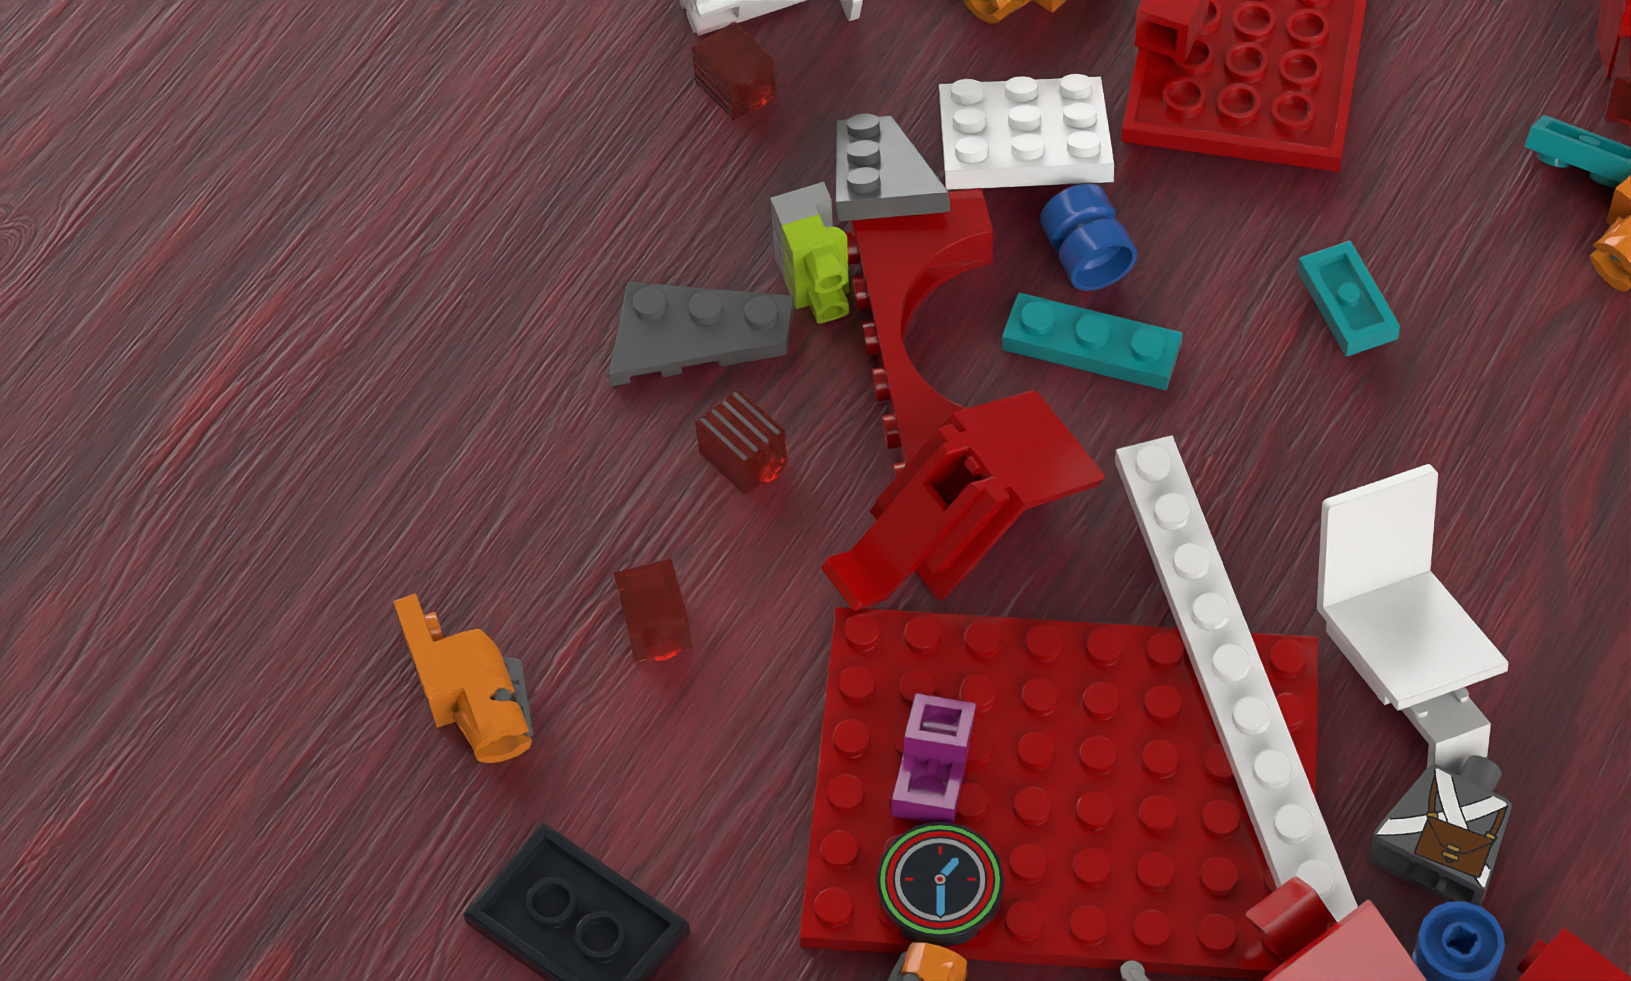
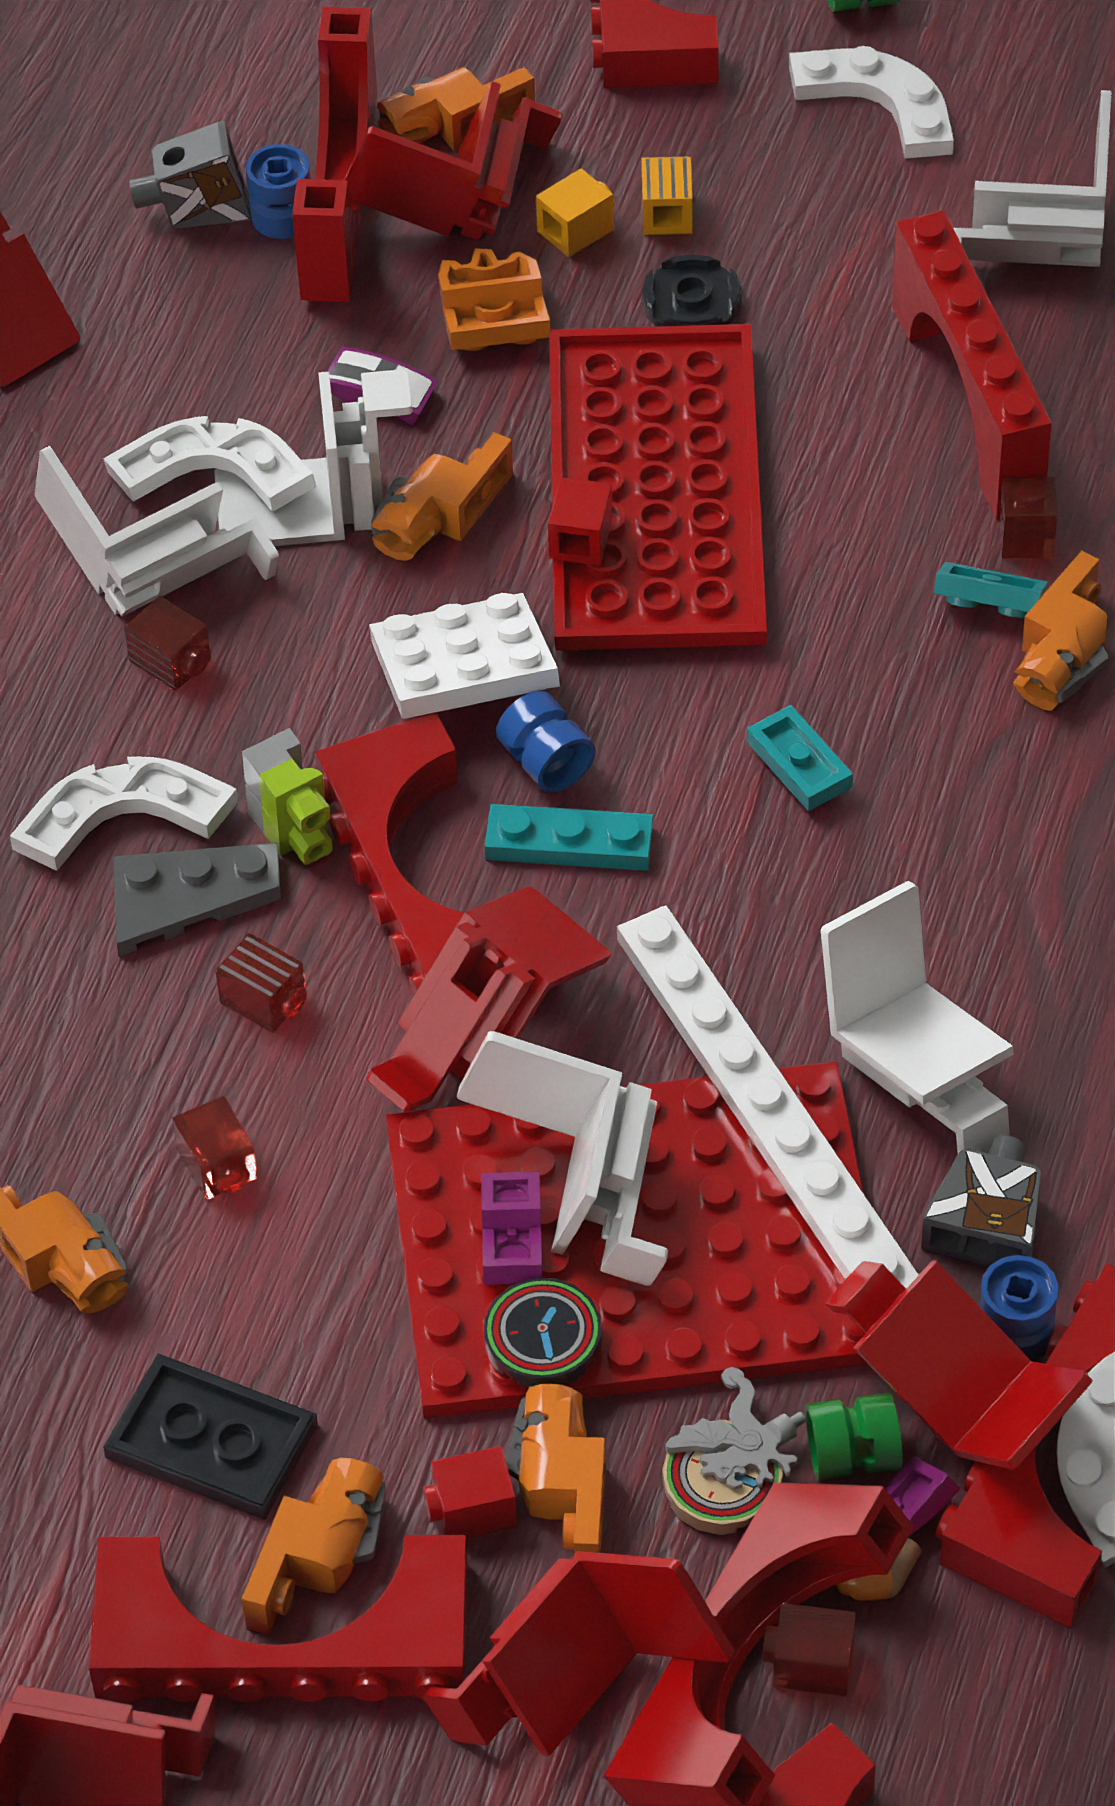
camera: 15 degrees left, 5 degrees down
(627, 215) = (141, 786): none -> white plate
(882, 172) = (338, 713): wing -> none
(1051, 696) = (609, 1146): none -> white piece

